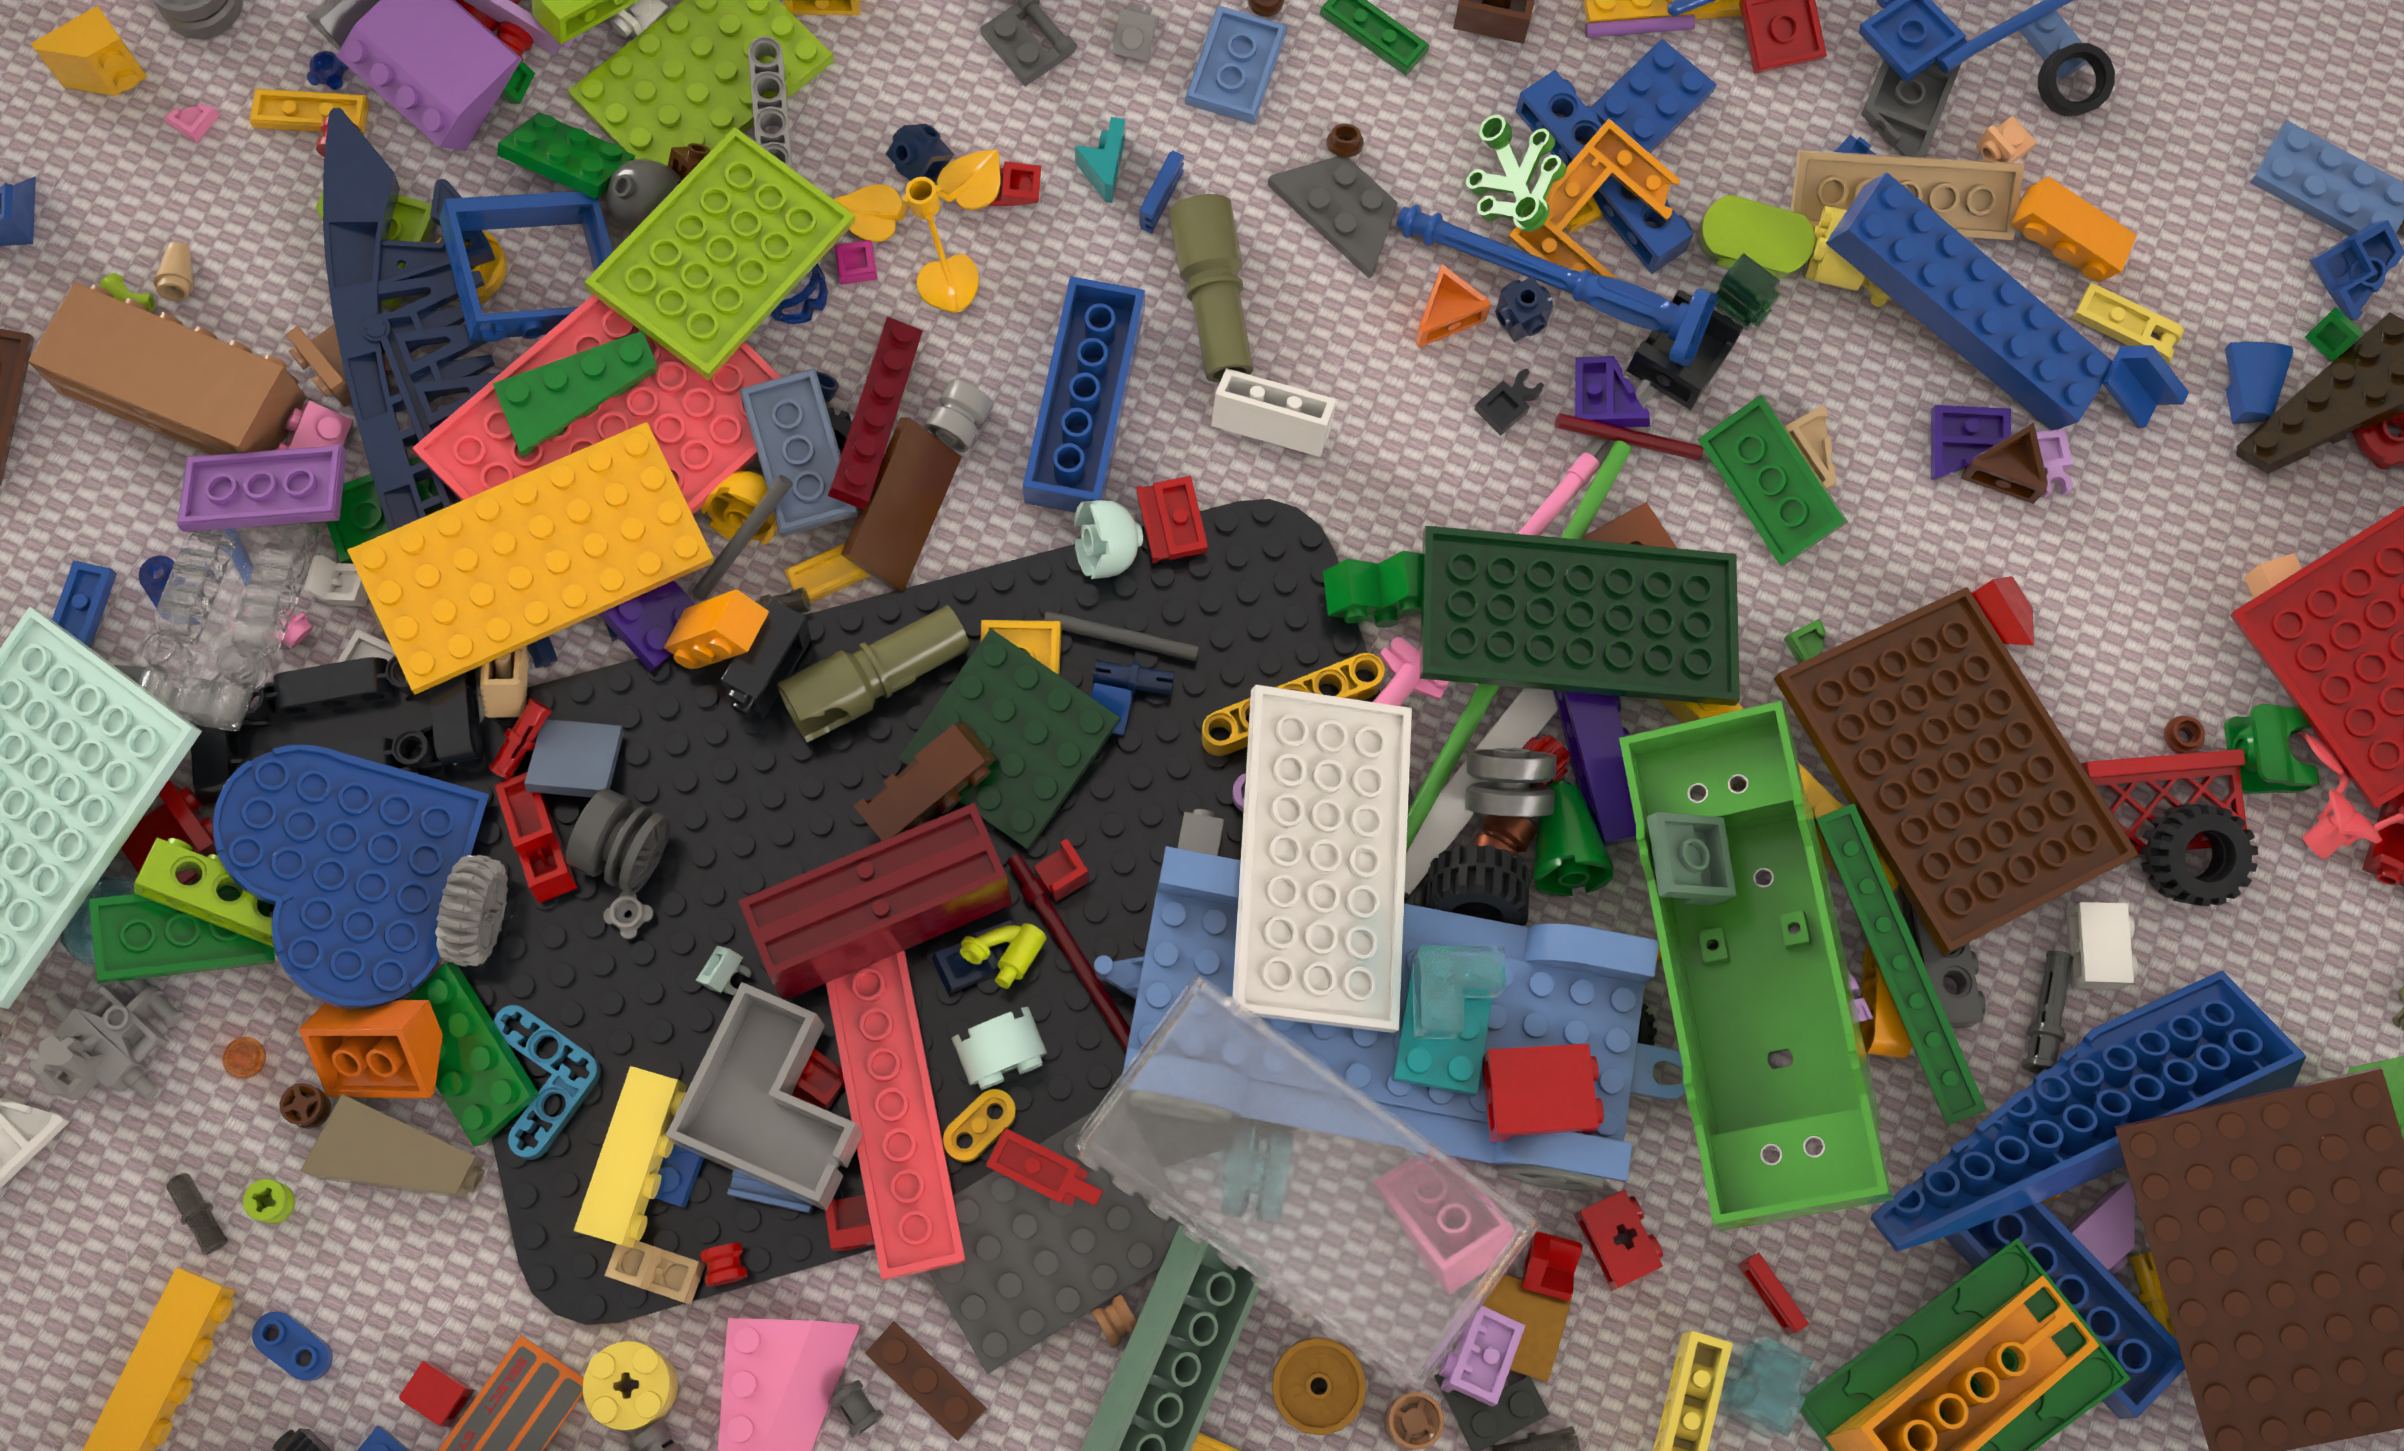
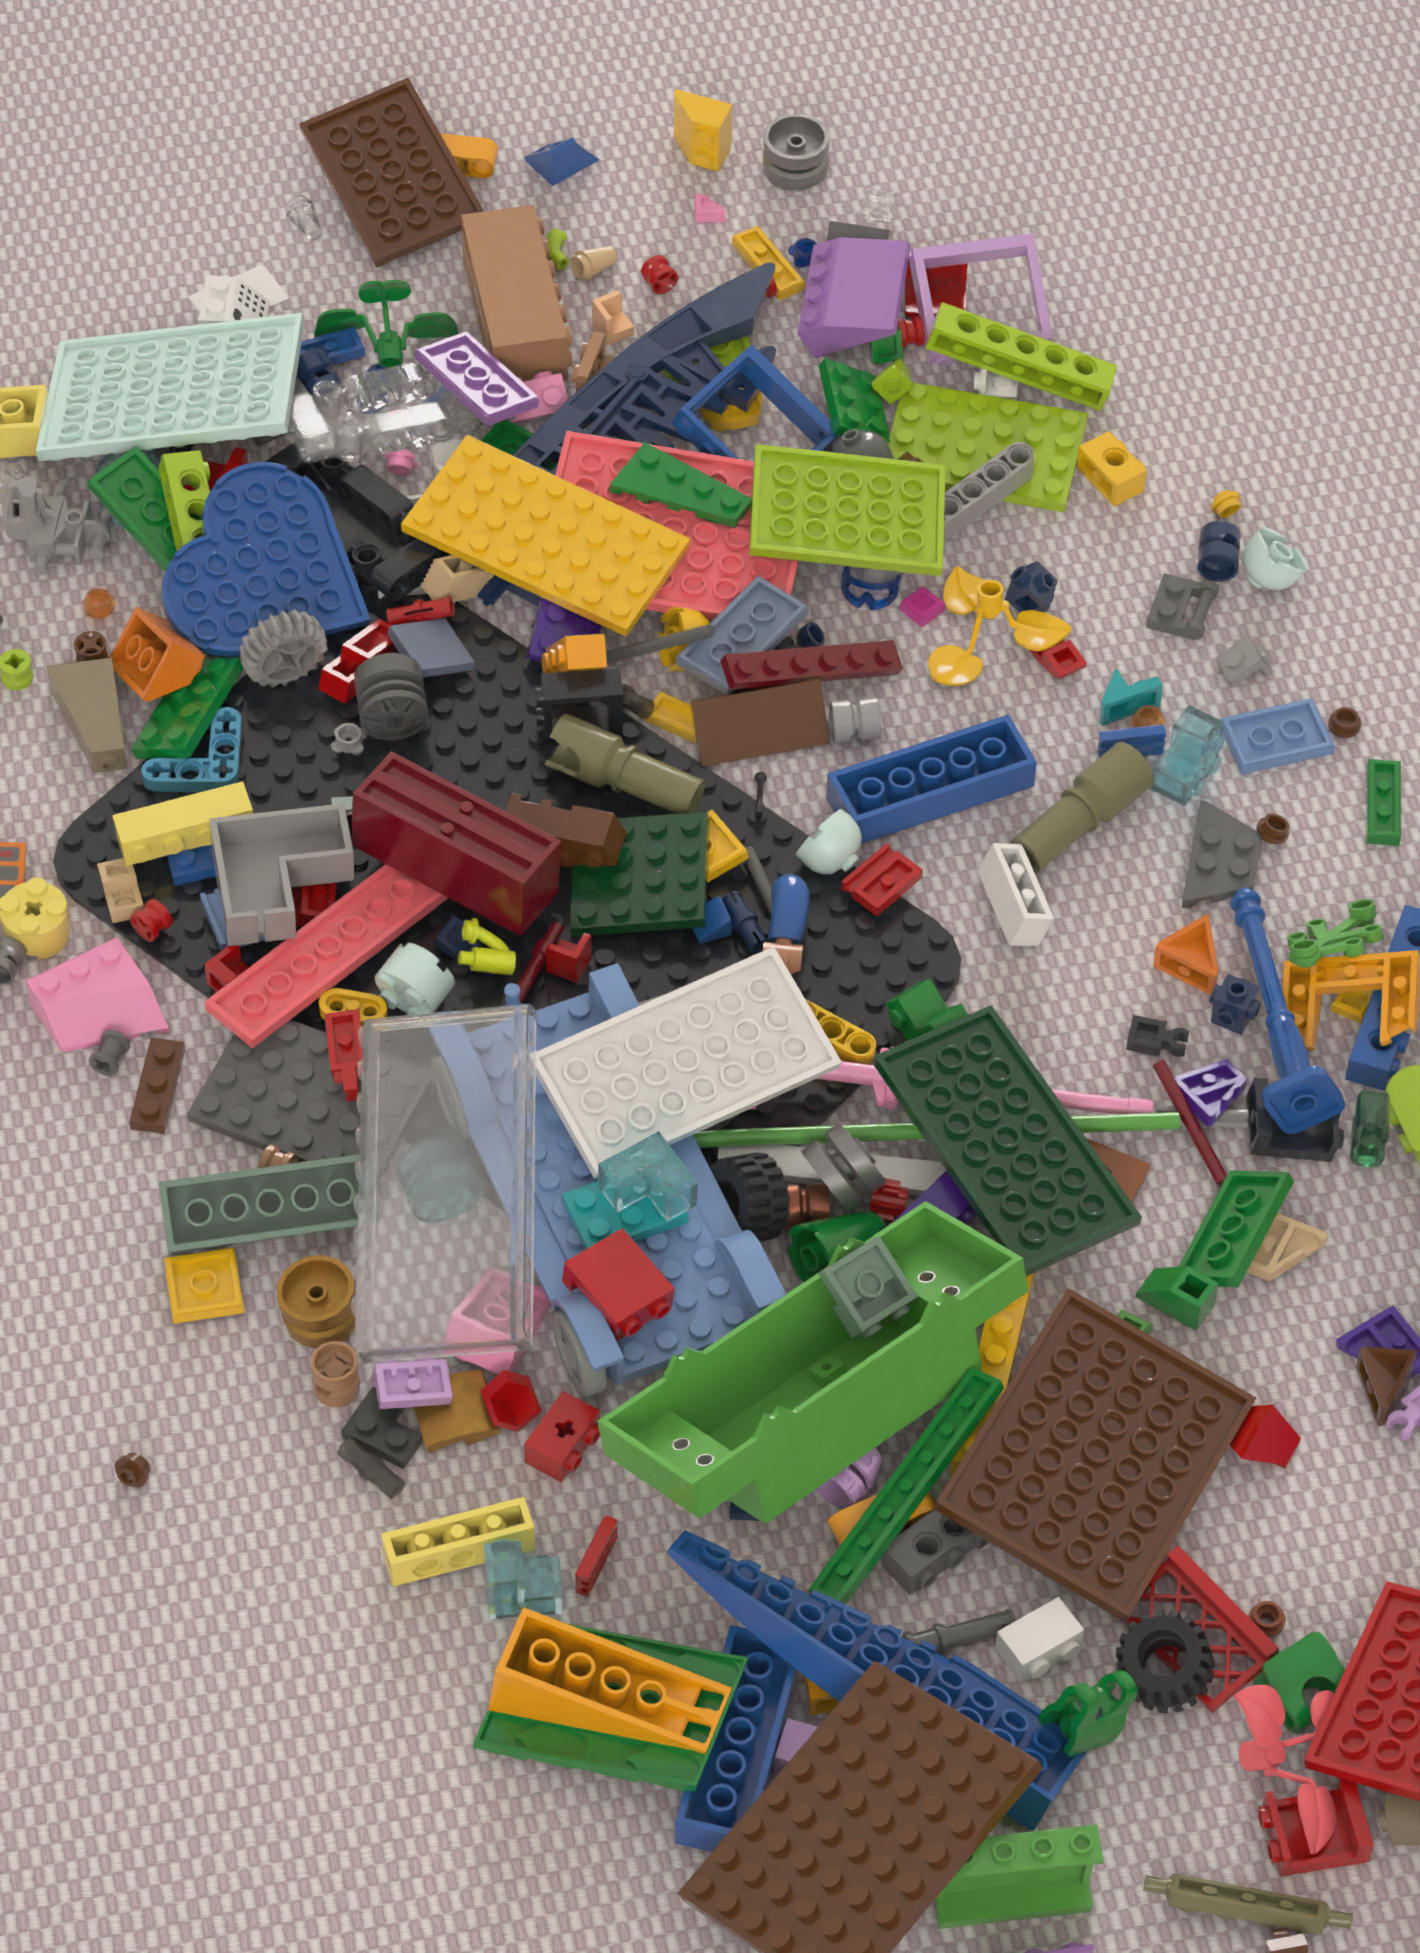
camera: 60 degrees right, 20 degrees down
(106, 630) = (315, 367): none -> dark blue wheel
(135, 543) = (389, 344): none -> green plant
(246, 221) = (659, 274): none -> red wheel
(268, 306) = (610, 319): none -> light nougat panel
(564, 100) = (893, 381): none -> lime bracket
(957, 547) = (760, 778): none -> black hinge
(1143, 160) = (1148, 716): none -> clear orange plate
(1172, 637) = (788, 919): none -> blue piece
(1219, 153) = (1191, 756): none -> clear light blue brick
(1810, 575) = (1180, 1294): none -> green slope
(2209, 955) = (1093, 1714): none -> green piece

